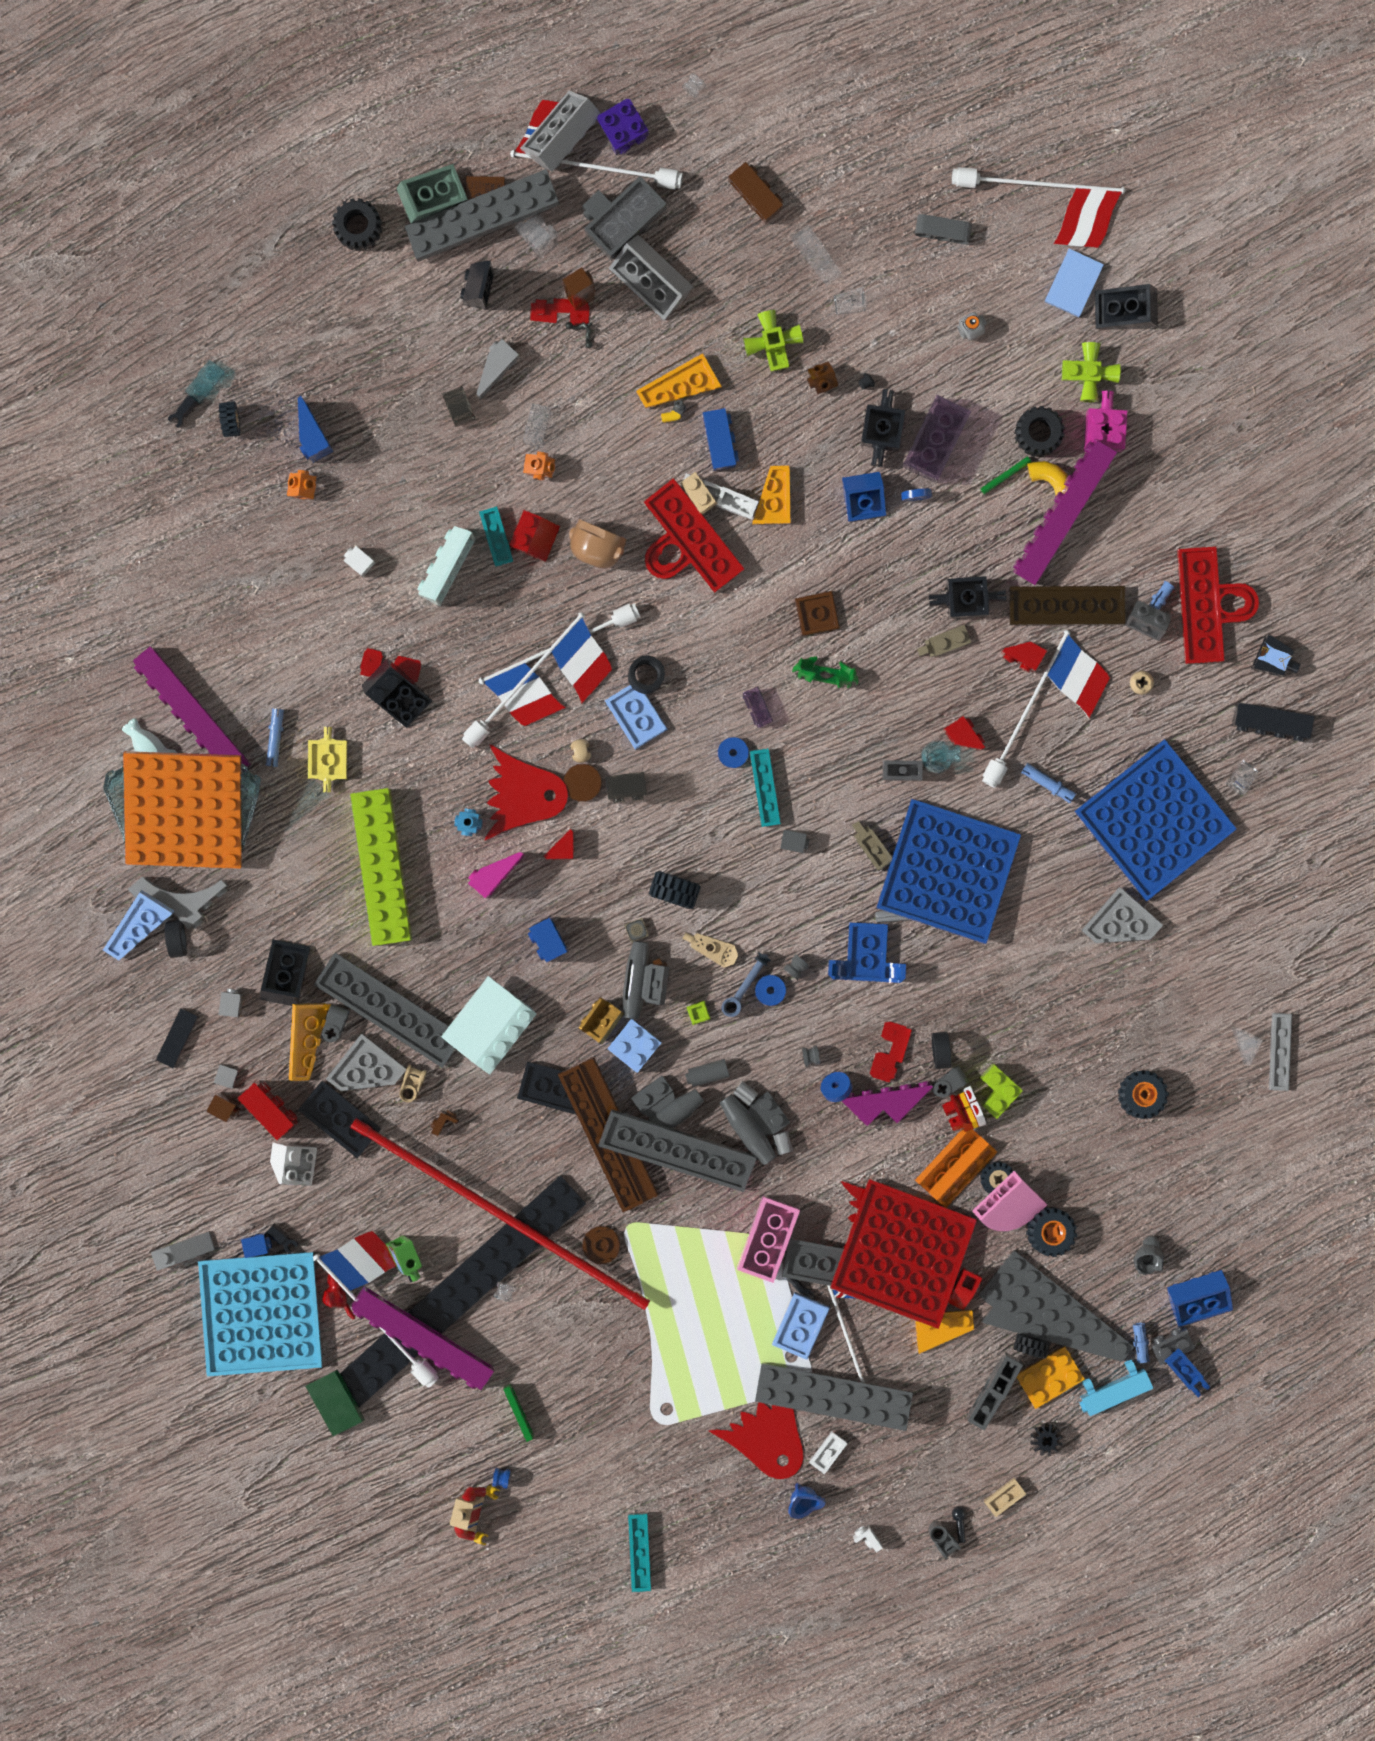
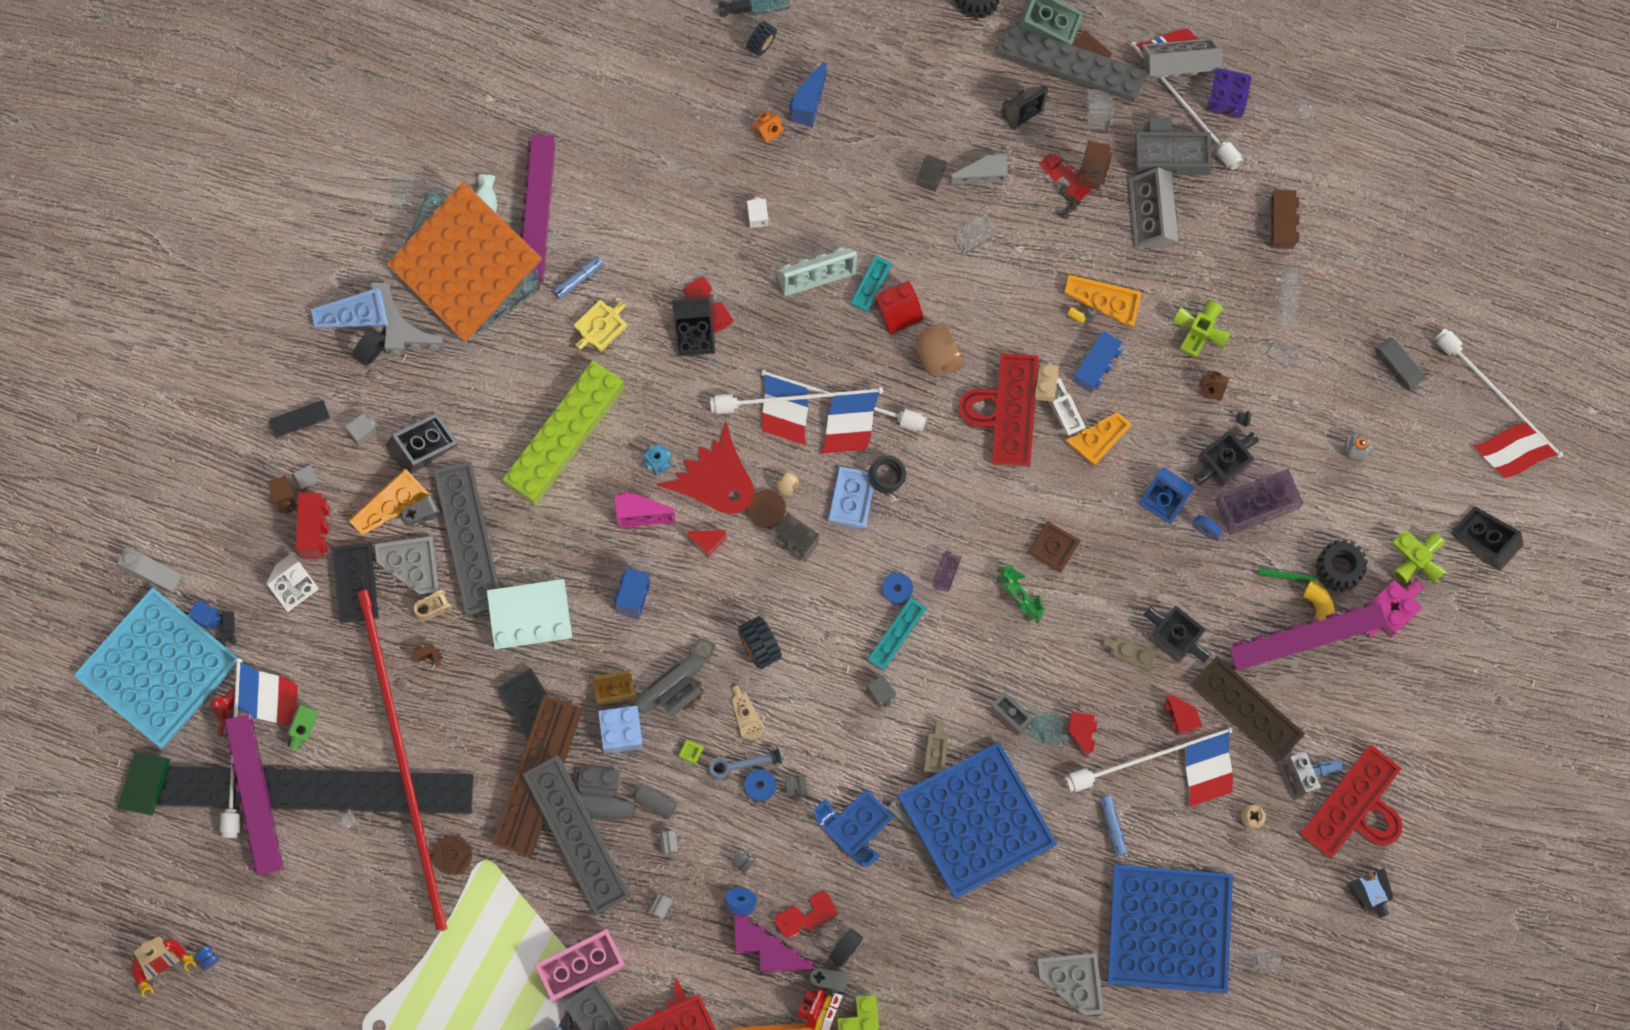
camera: 45 degrees right, 15 degrees down
(518, 1412) = (268, 920): green tile -> none
(539, 466) = (949, 262): orange brick -> none
(753, 1124) = (653, 872): dark grey plate -> none
(1074, 283) = (1463, 486): light blue tile -> none
(1273, 721) = (1329, 938): black brick -> none

